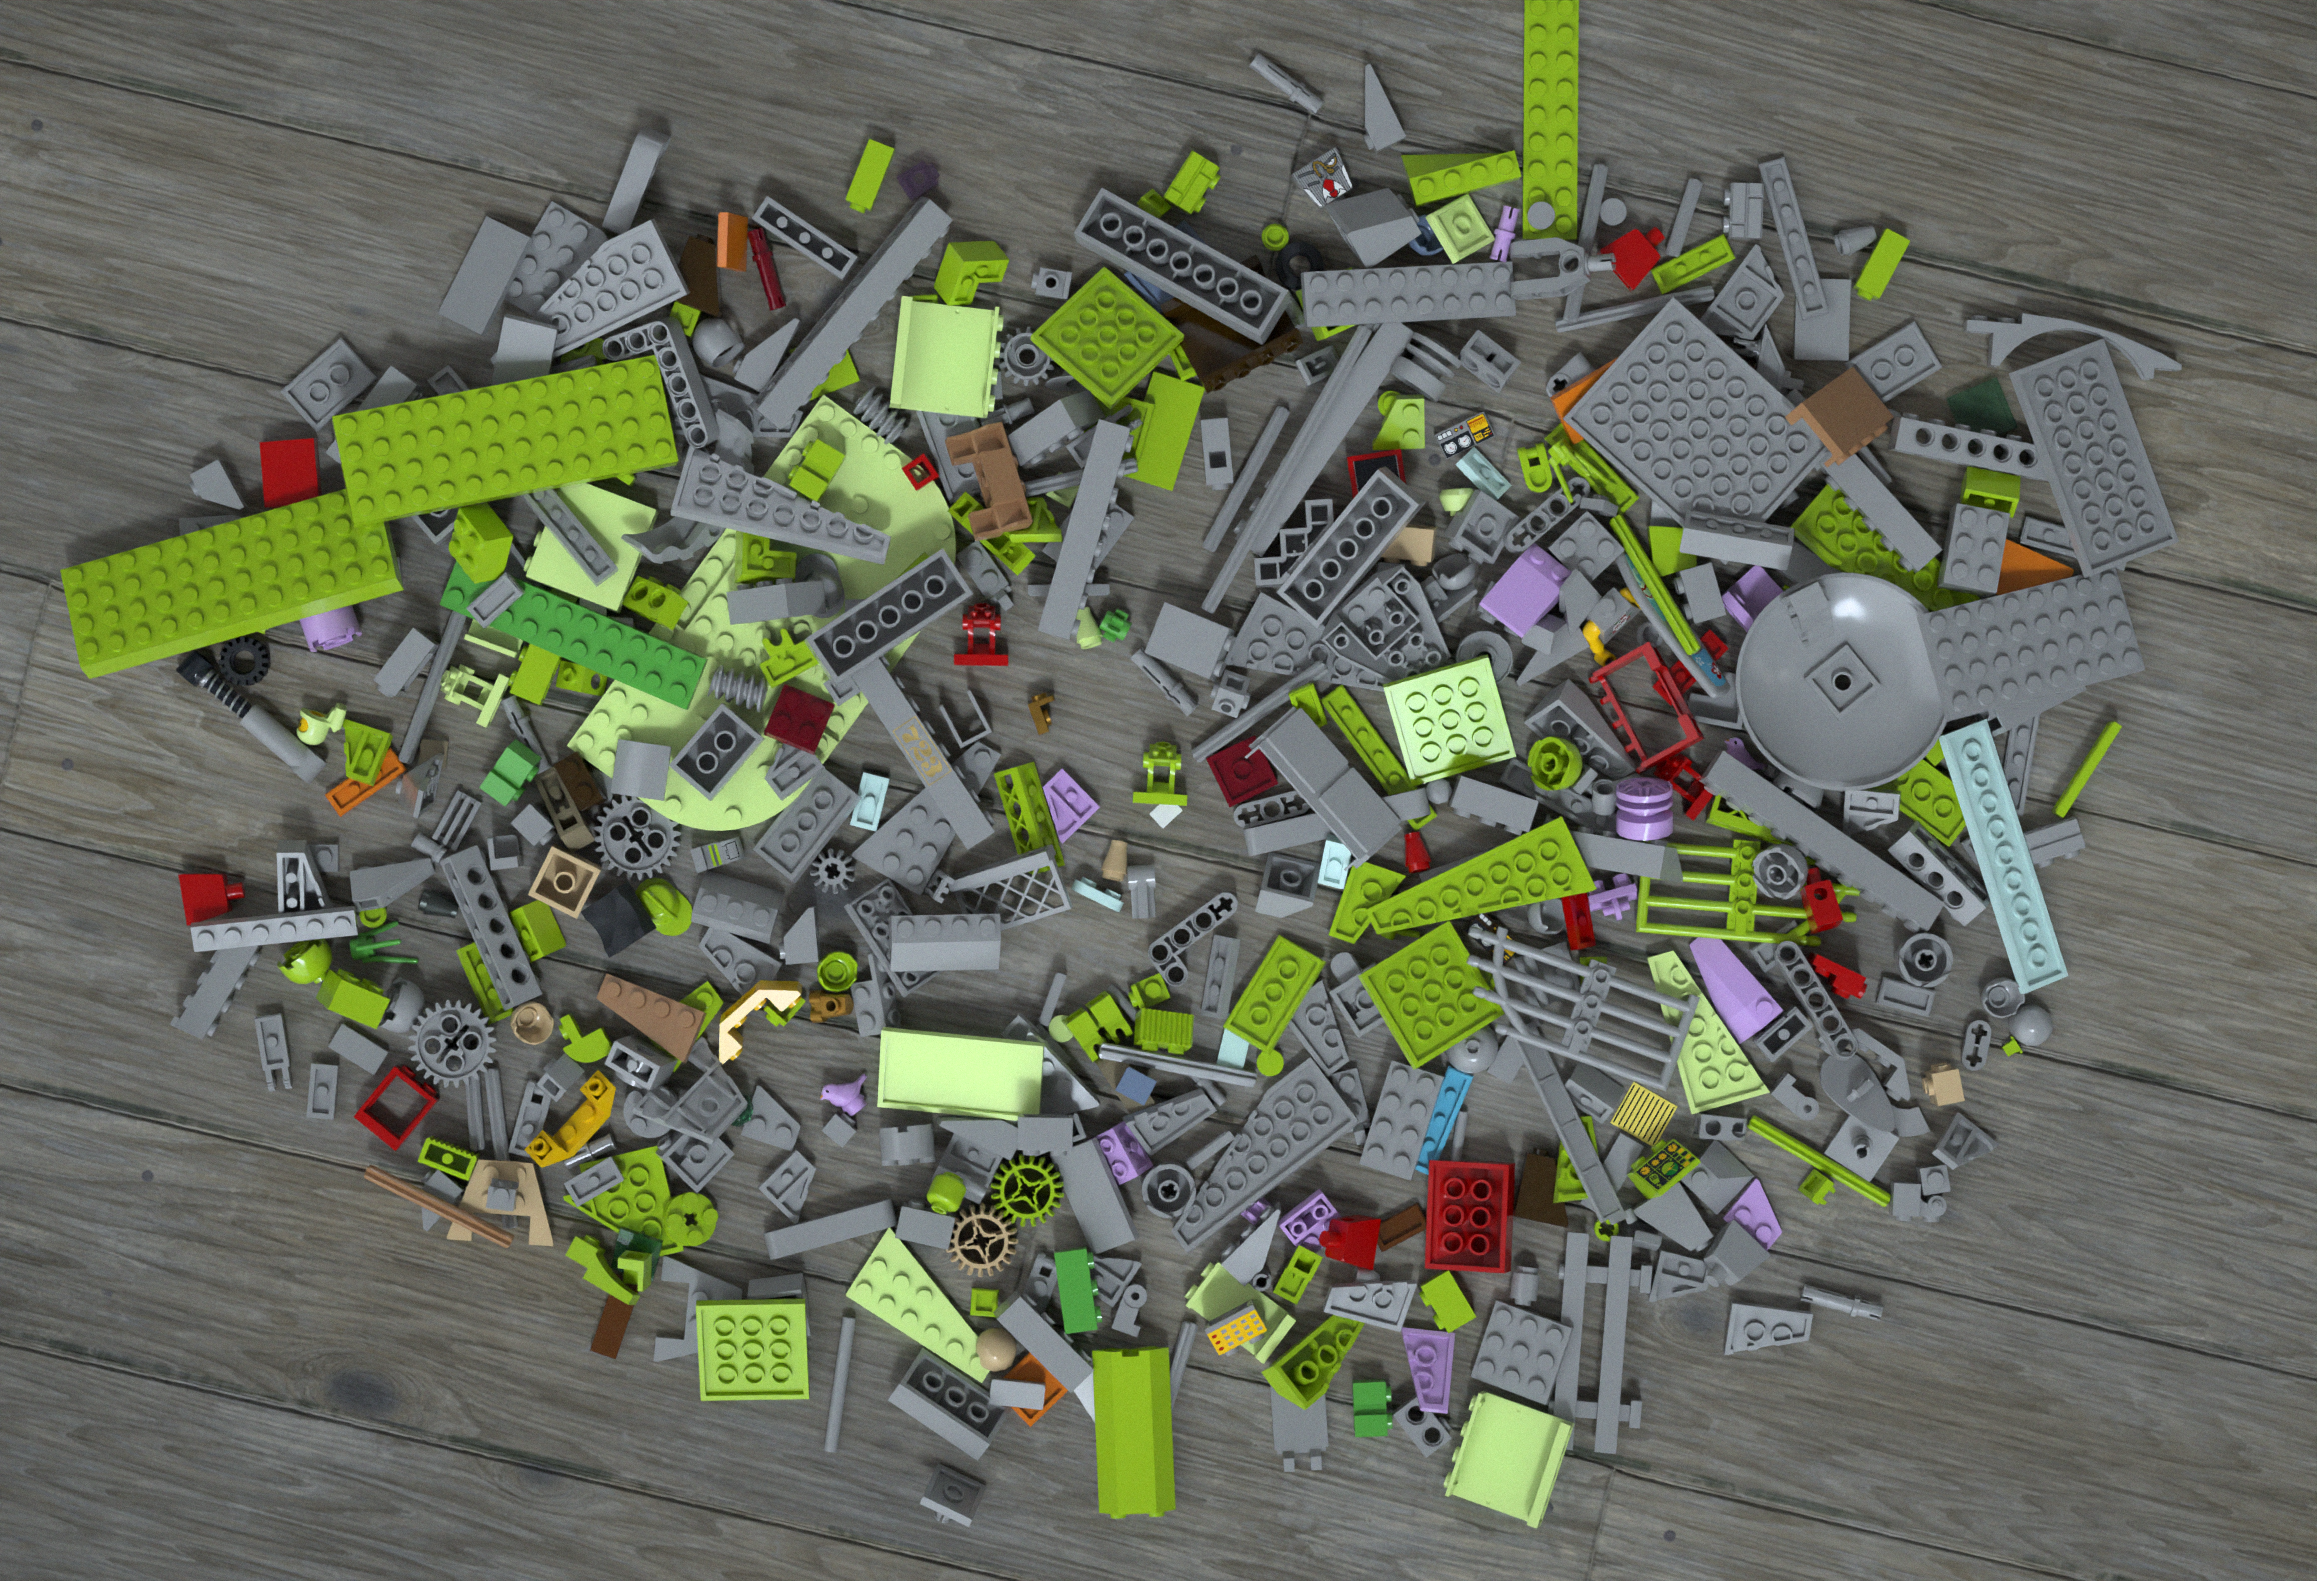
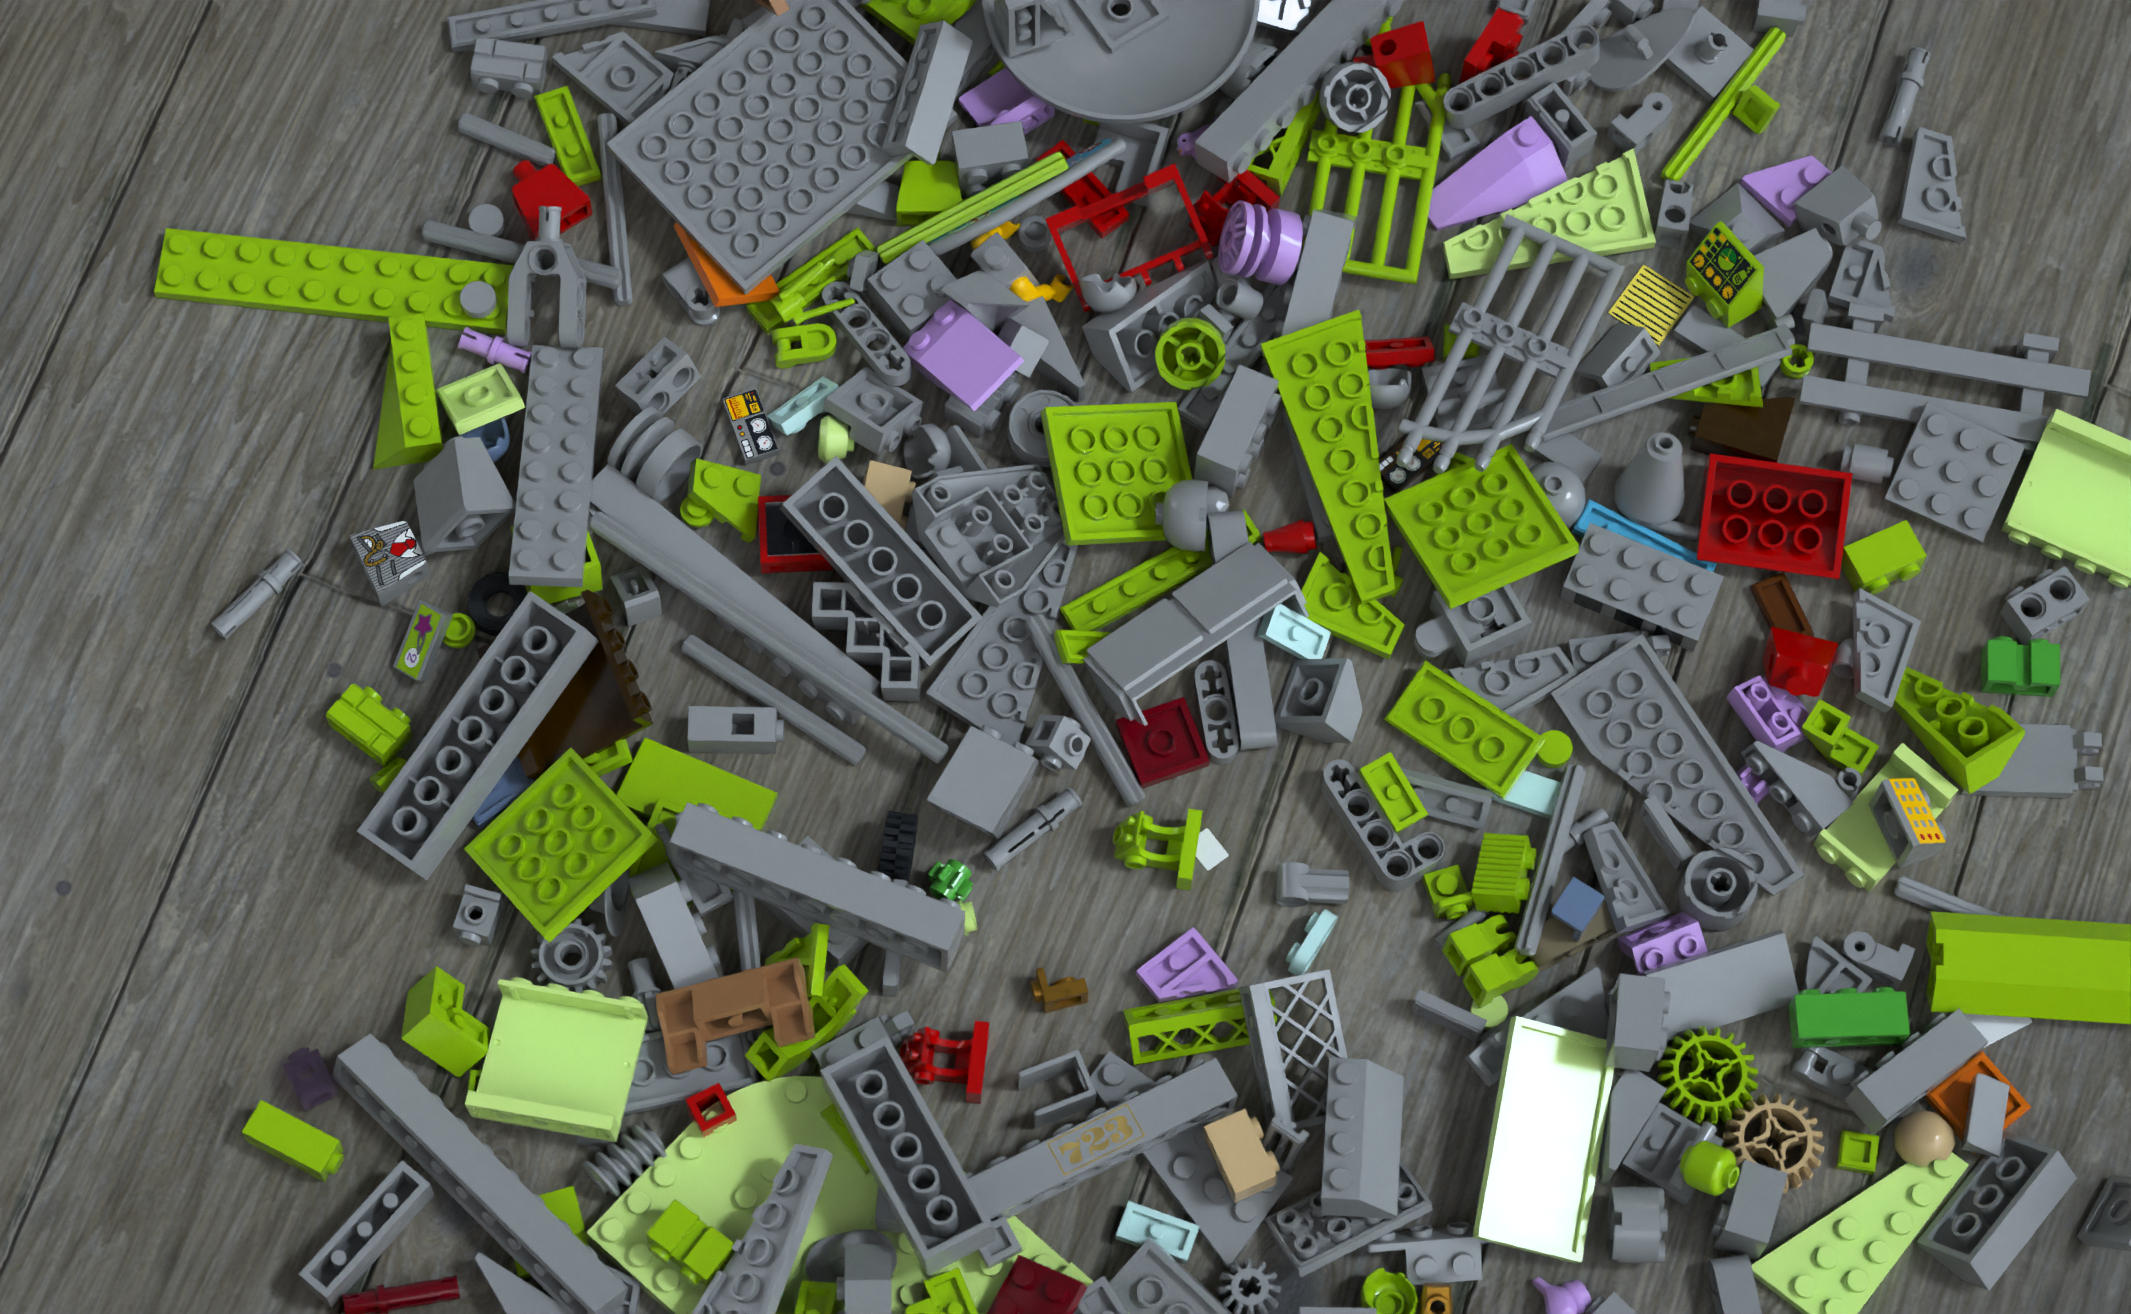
camera: 90 degrees left, 20 degrees down
(925, 856) = (1240, 1154): none -> tan brick
(1064, 496) = (768, 933): yellowish green tile -> none
(1115, 863) = (1271, 916): tan cone -> none
(1136, 584) = (898, 845): none -> black tyre
(1214, 944) = (1393, 792): none -> lime panel
(1260, 212) = (422, 641): none -> slope
(1380, 121) = (317, 484): light grey slope -> none
(1416, 771) = (1184, 514): none -> light grey cylinder
(1430, 1366) = (1970, 583): lavender wing -> none
(1483, 1122) = (1653, 482): none -> light grey cone
(1596, 695) = (1107, 295): none -> light grey hair
(1614, 900) = (1363, 294): lavender hips -> none

